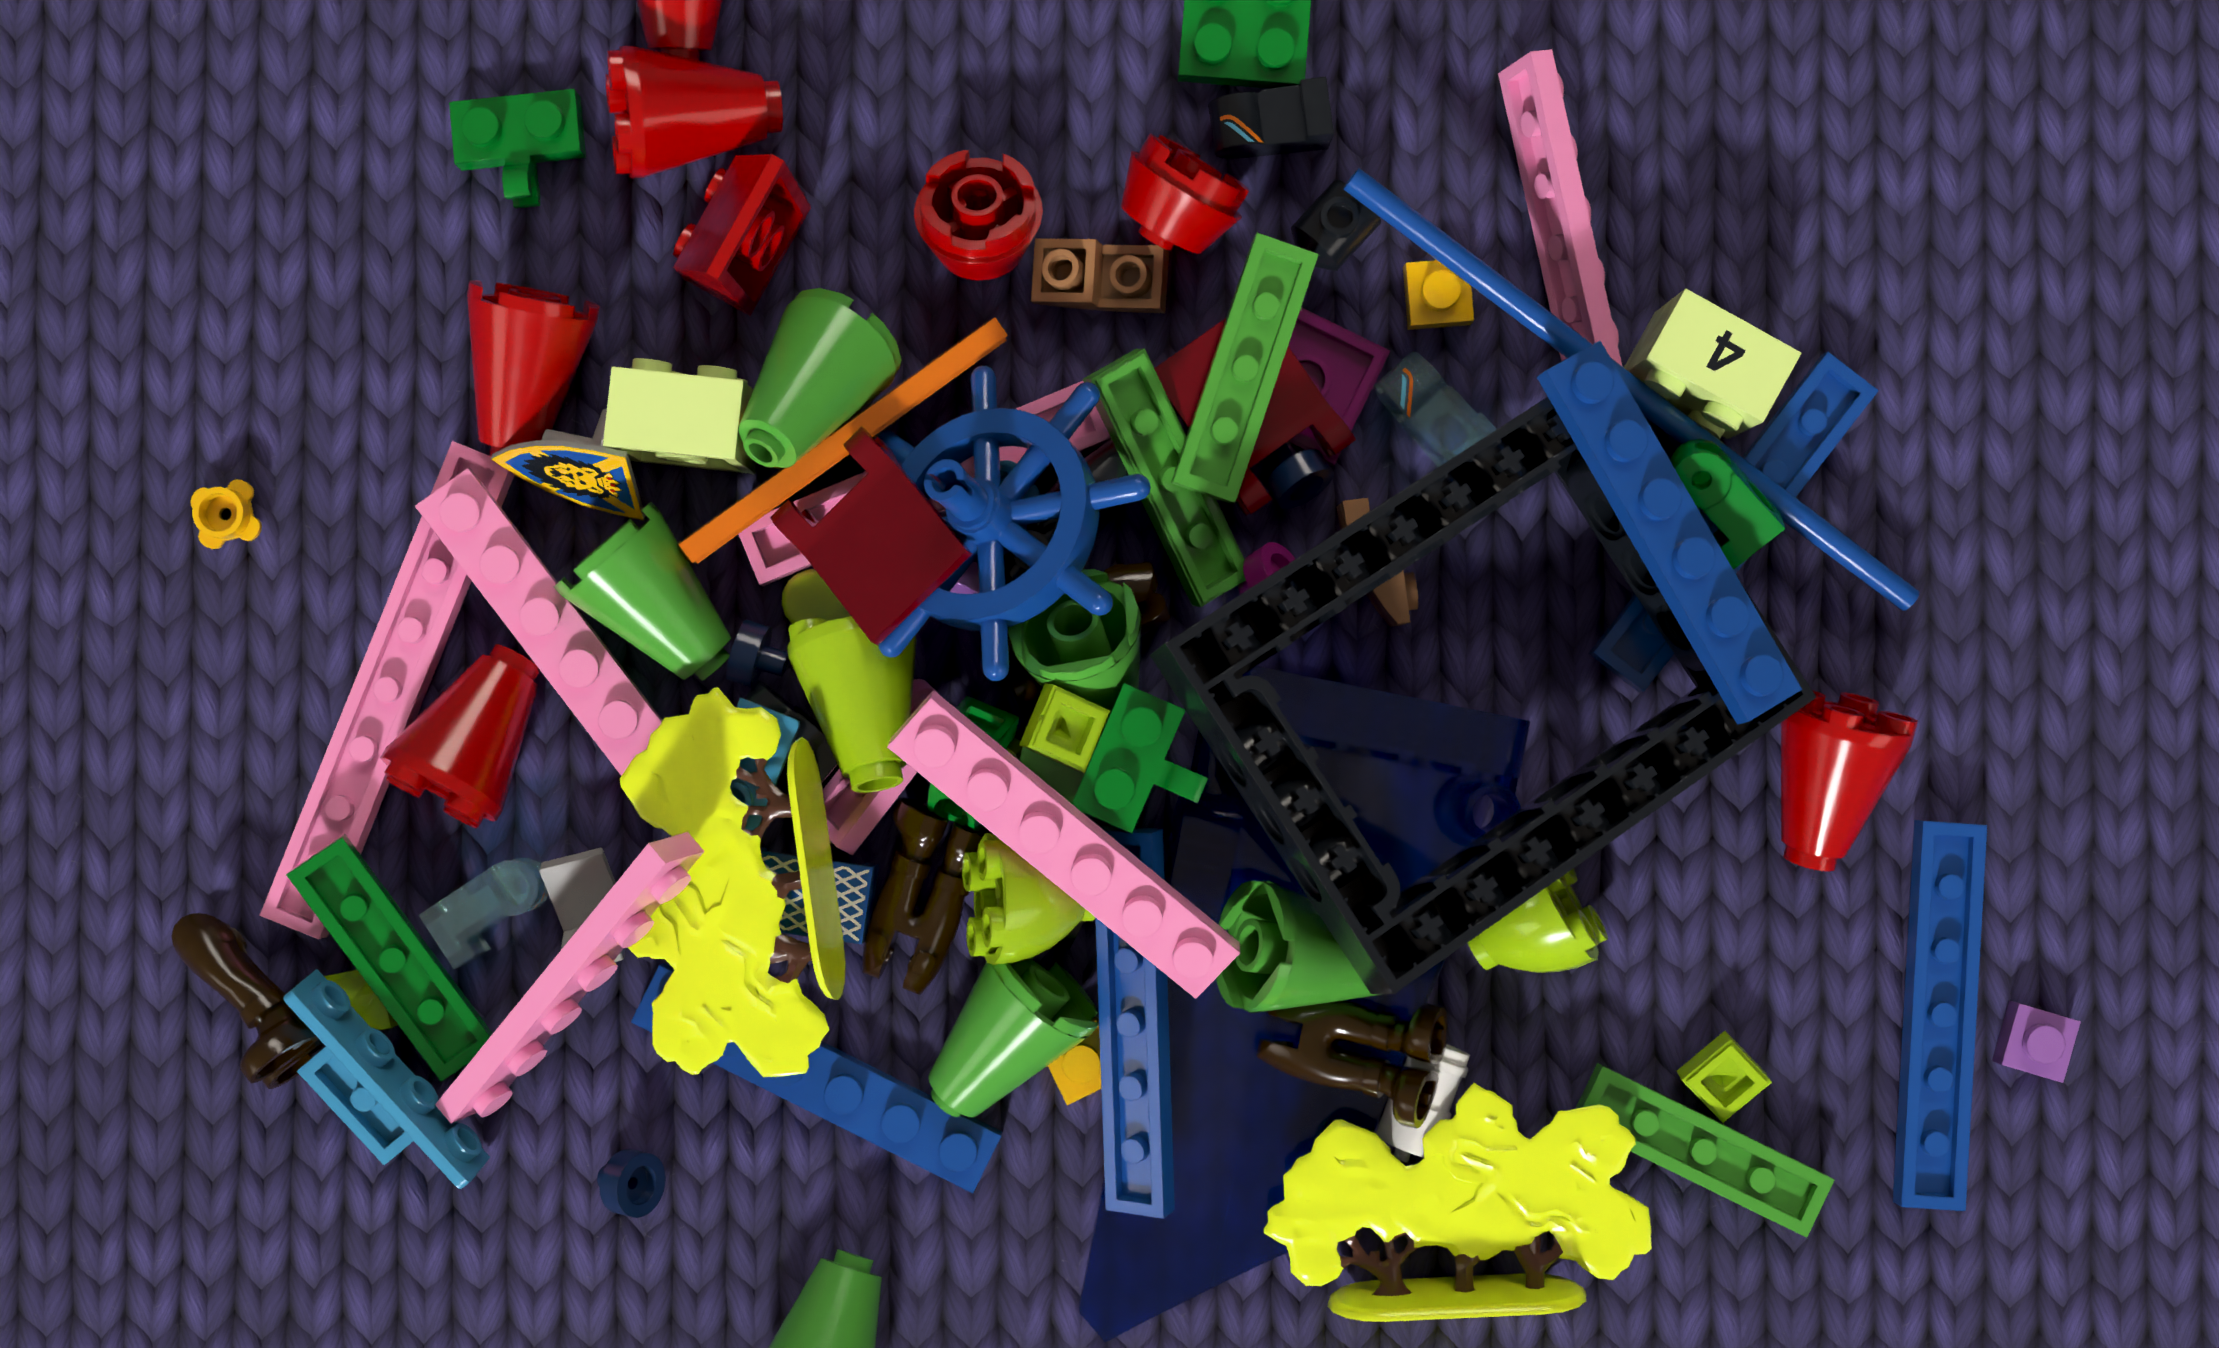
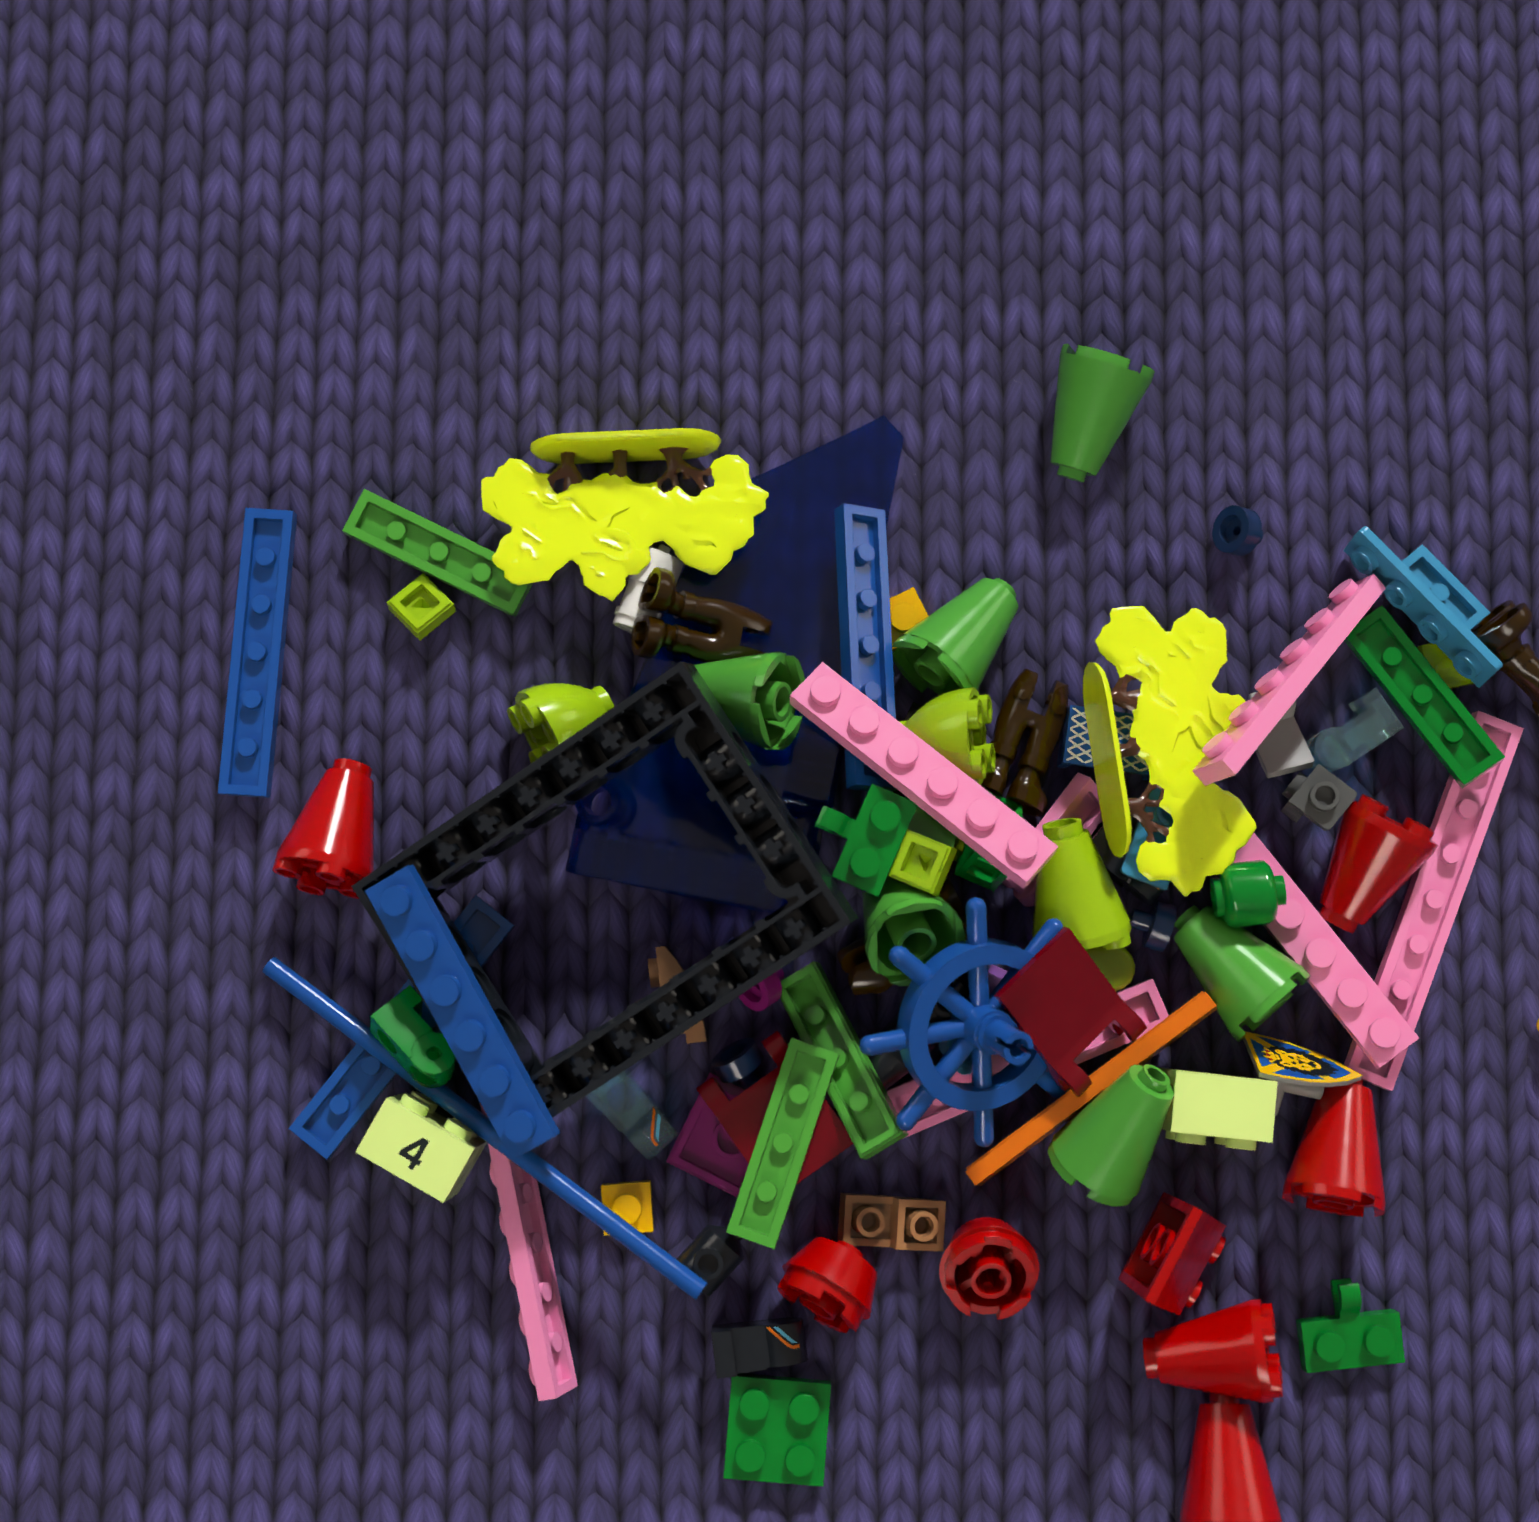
camera: 170 degrees right, 5 degrees down
(535, 820) = (1318, 797): none -> dark grey bracket
(633, 691) = (1247, 894): none -> green head
(866, 1105) = (1061, 587): blue plate -> none
(2036, 1041) = (185, 632): medium lavender plate -> none

